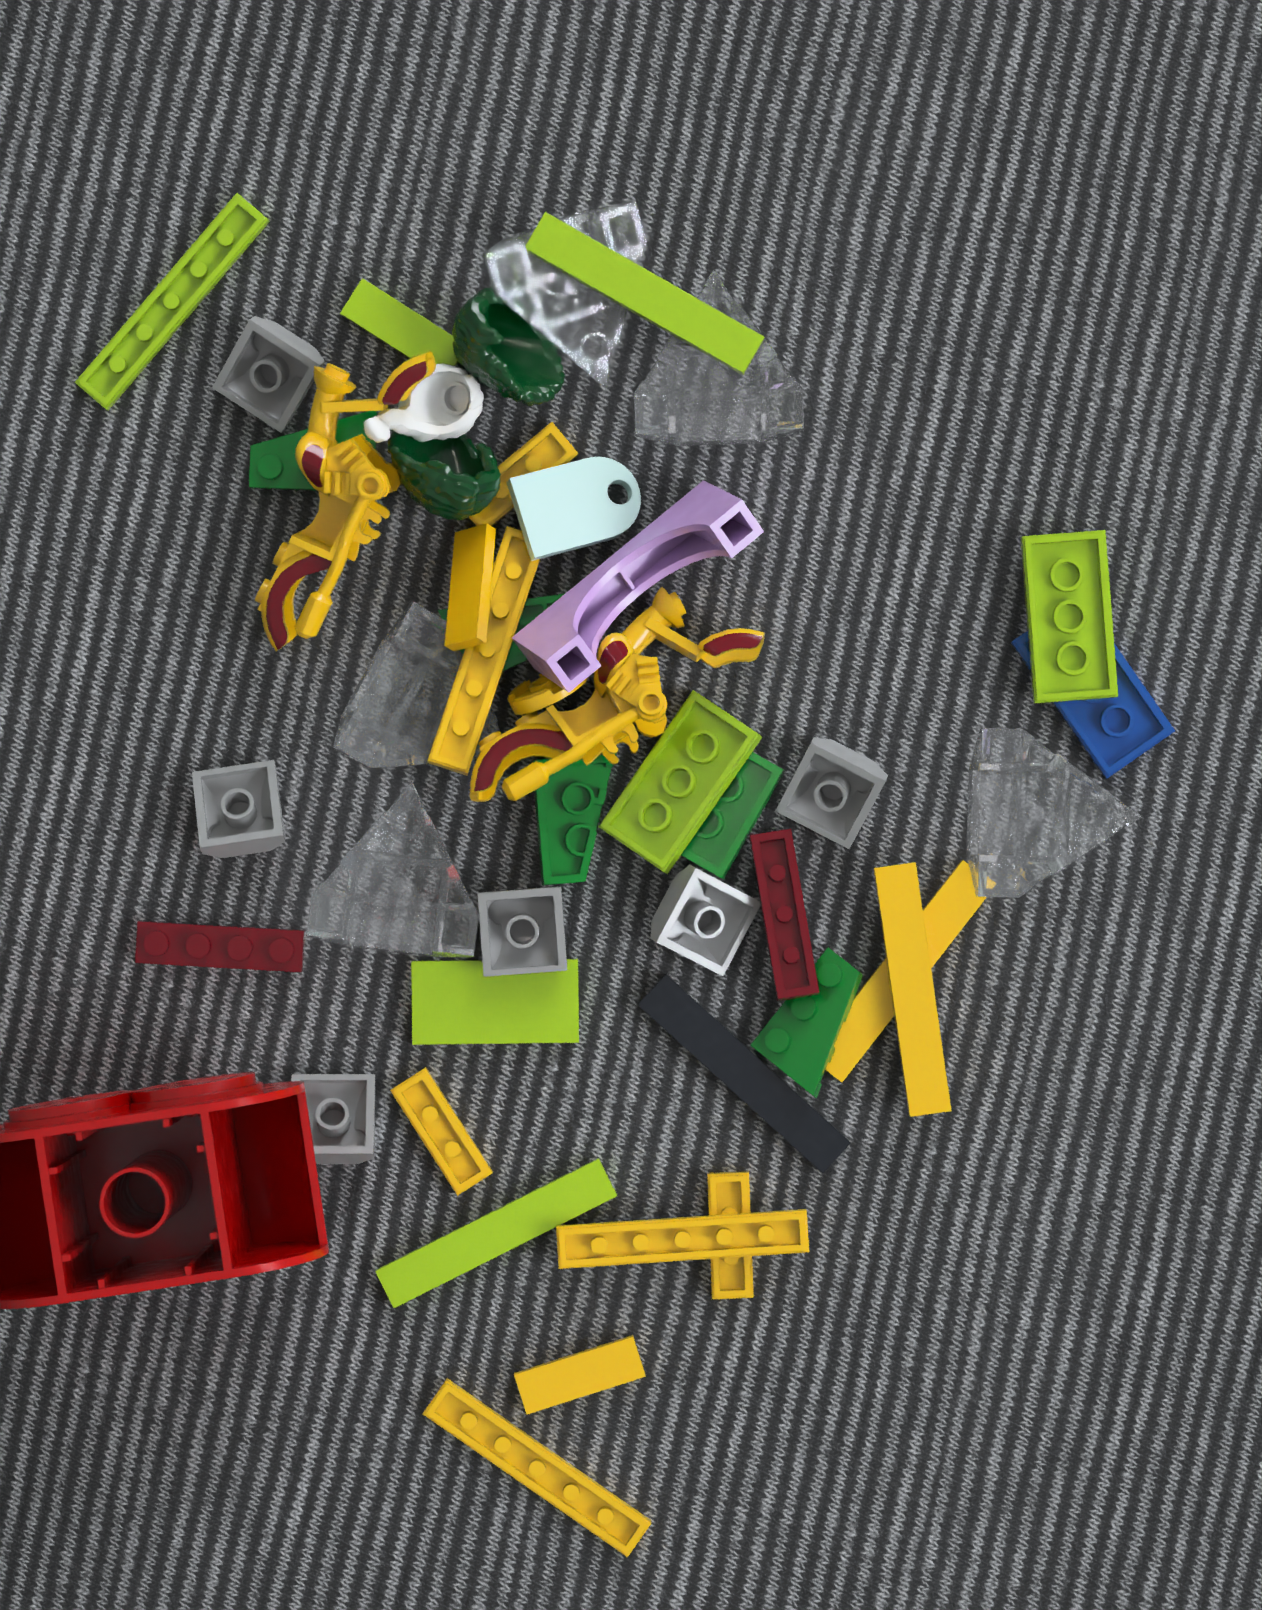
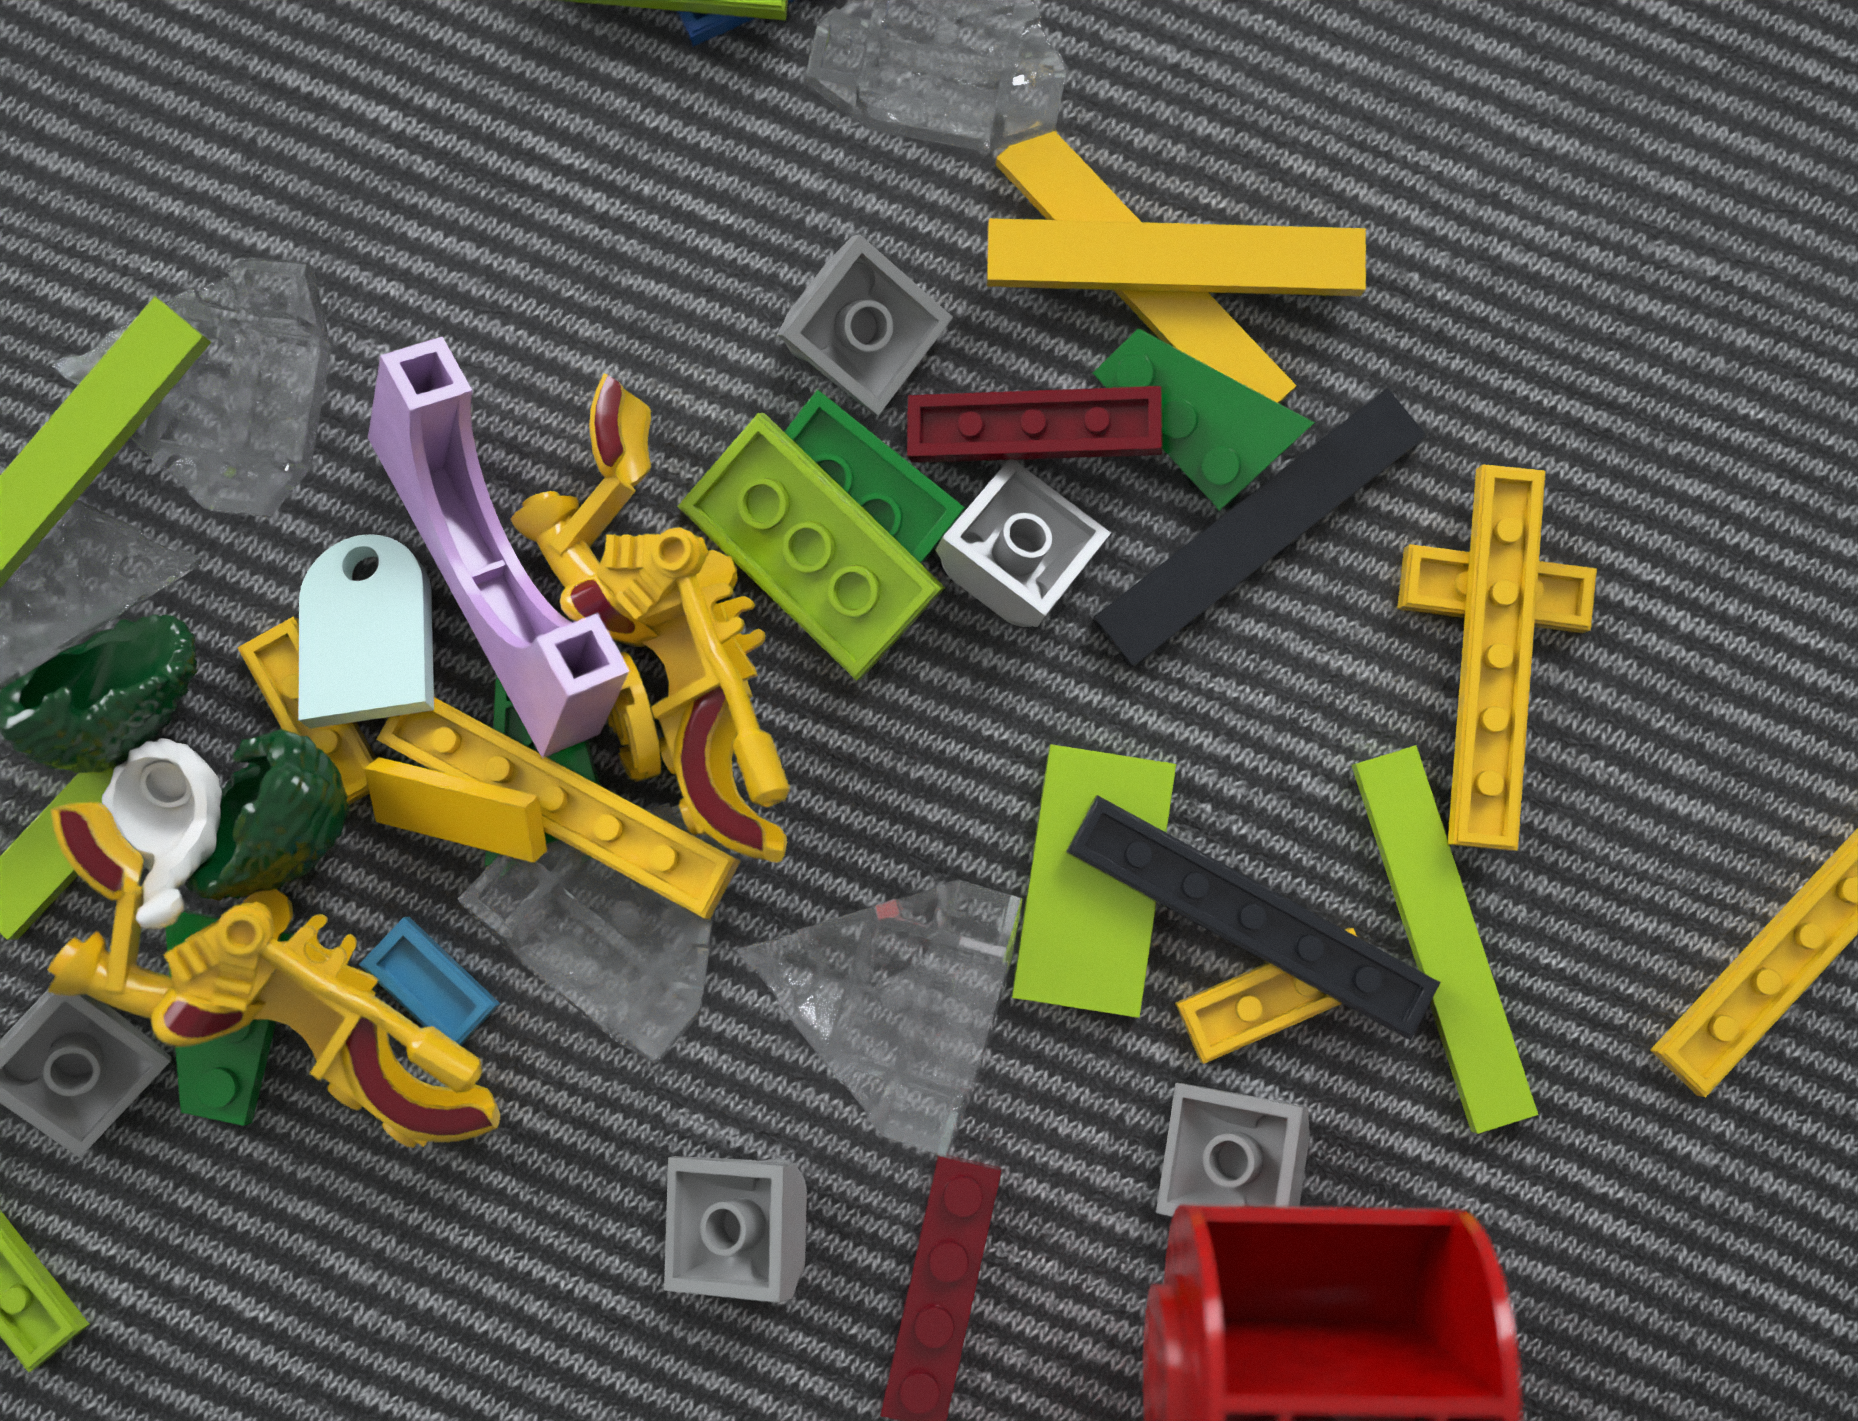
camera: 80 degrees left, 5 degrees down
(359, 586) = (429, 982): none -> dark azure tile
(488, 1105) = (1253, 917): none -> black tile
(522, 931) = (995, 818): light grey slope -> none
(569, 818) = (835, 722): green wing -> none
(579, 1374) = (1675, 848): yellow tile -> none

